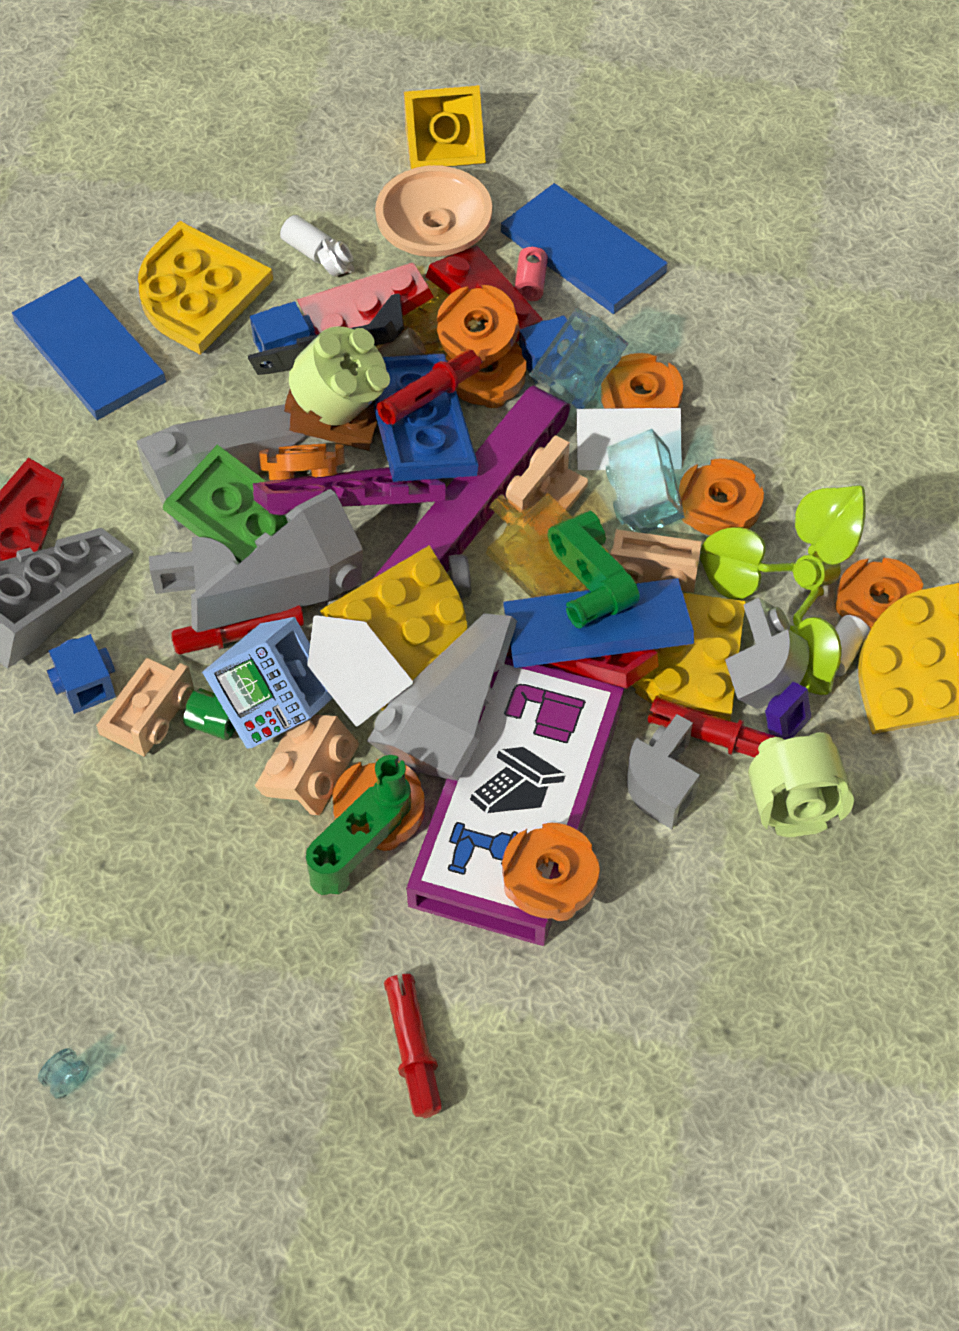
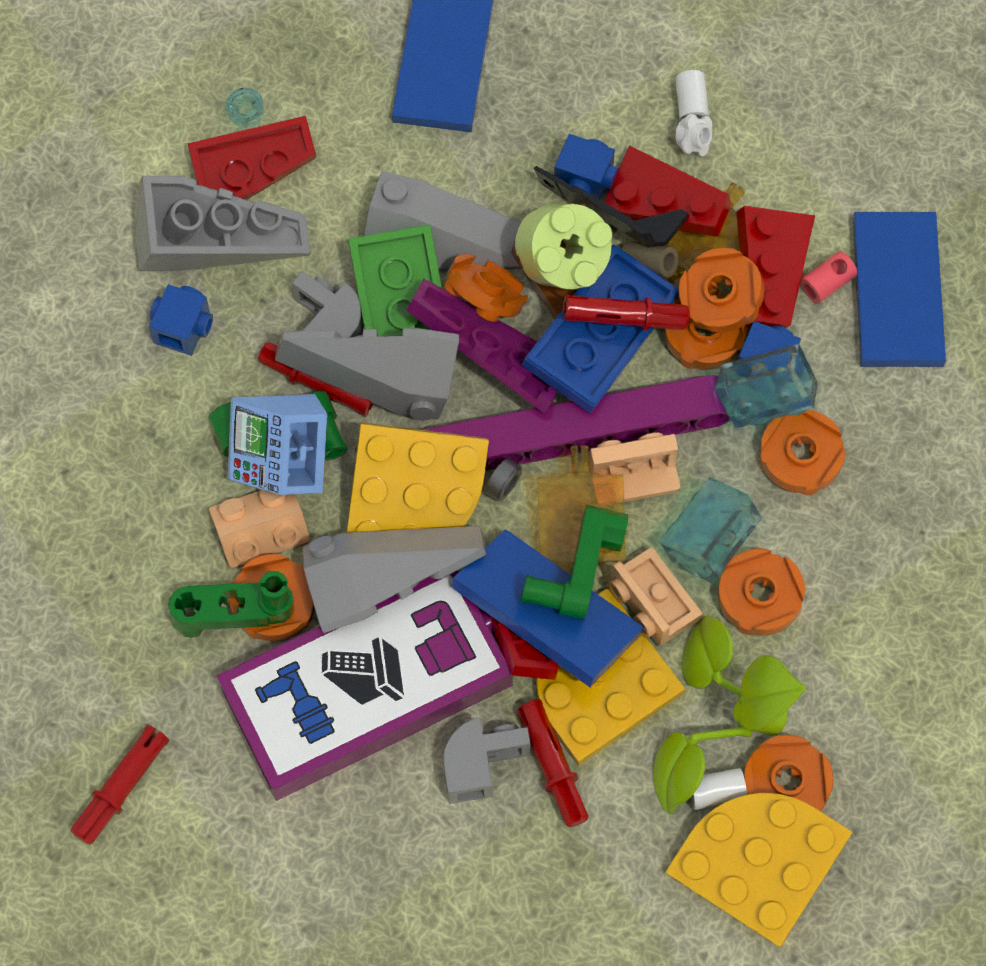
camera: 45 degrees right, 10 degrees up
(147, 706) = (197, 383): light nougat bracket -> none
(197, 286) = (569, 70): yellow plate -> none
(354, 666) = (341, 485): white sticker -> none
(433, 211) = (805, 139): light nougat dish -> none
(444, 126) = (898, 86): yellow slope -> none
(550, 897) = (288, 744): orange plate -> none
(606, 427) = (744, 467): white sticker -> none
(774, 660) = (641, 754): light grey brick -> none
(788, 711) = (614, 800): dark purple plate -> none
(800, 784) = (554, 858): yellowish green brick -> none

